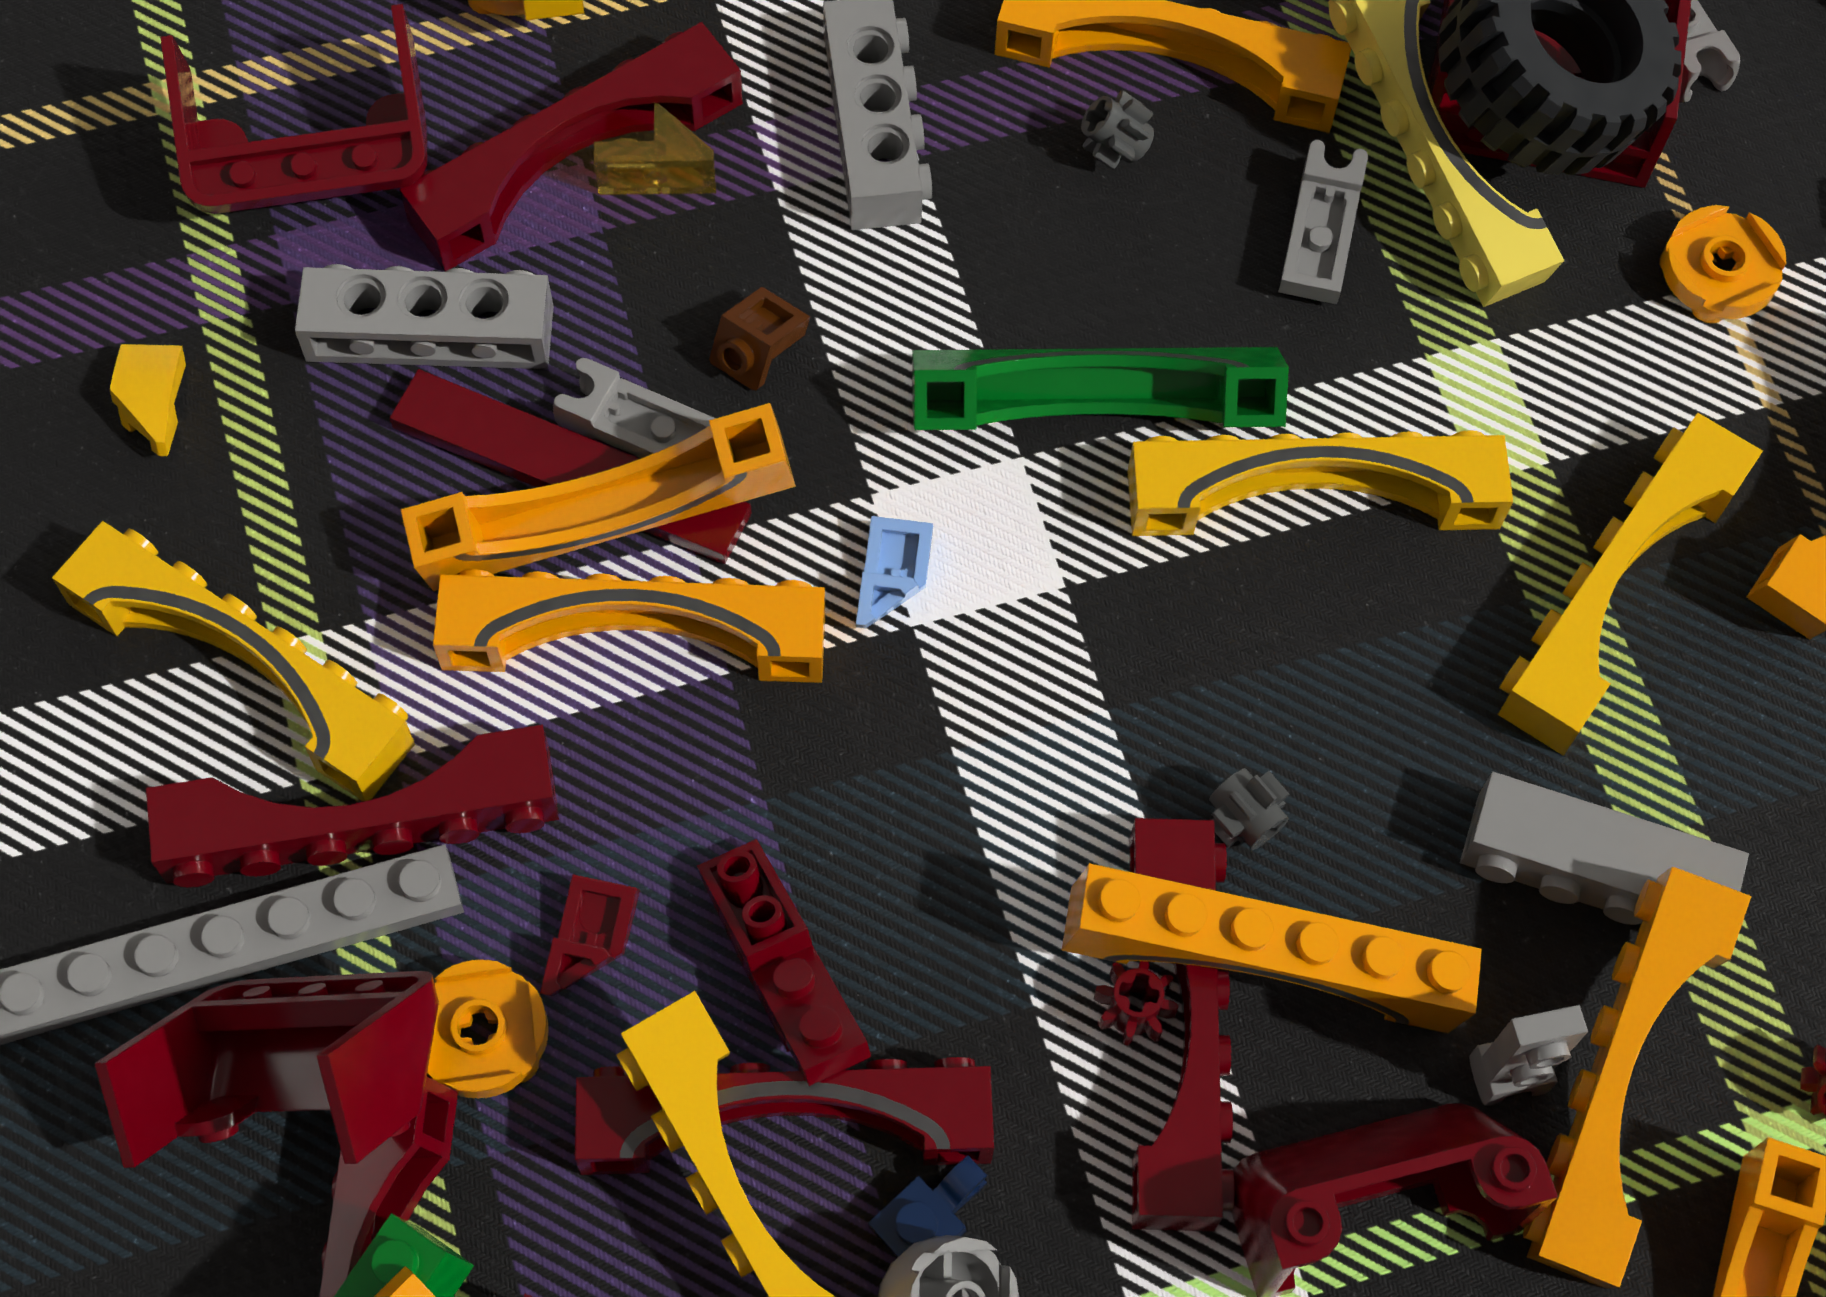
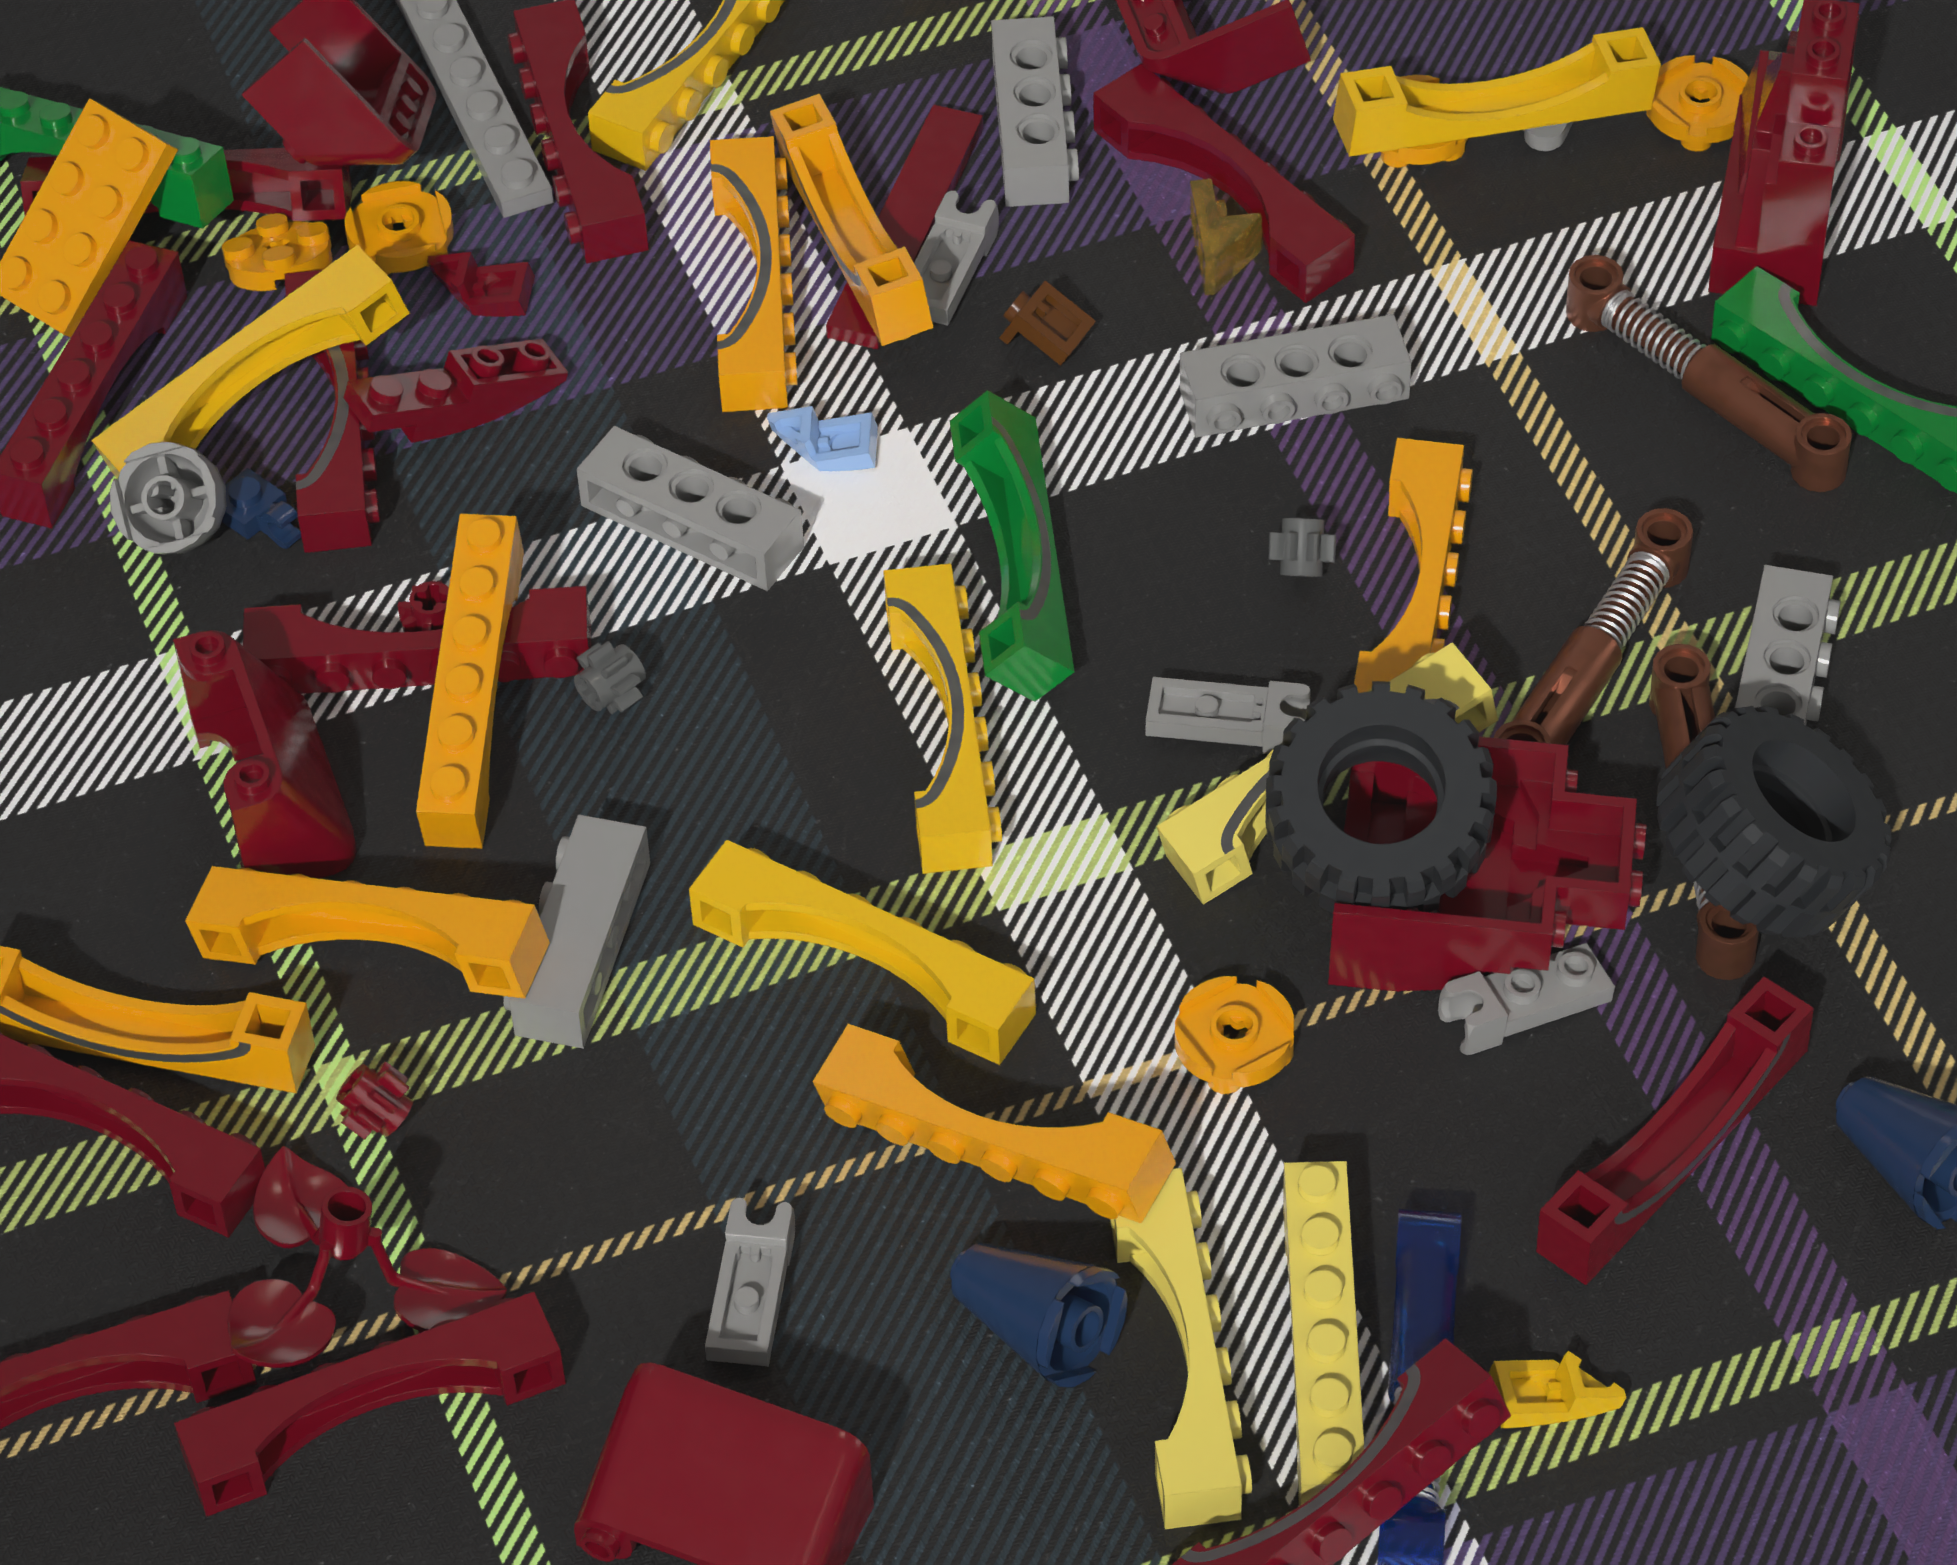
camera: 90 degrees right, 15 degrees down
(472, 1178) = (276, 249): none -> light orange plate
(948, 794) = (691, 507): none -> light grey brick
(1526, 1054) = (377, 850): light grey plate -> none

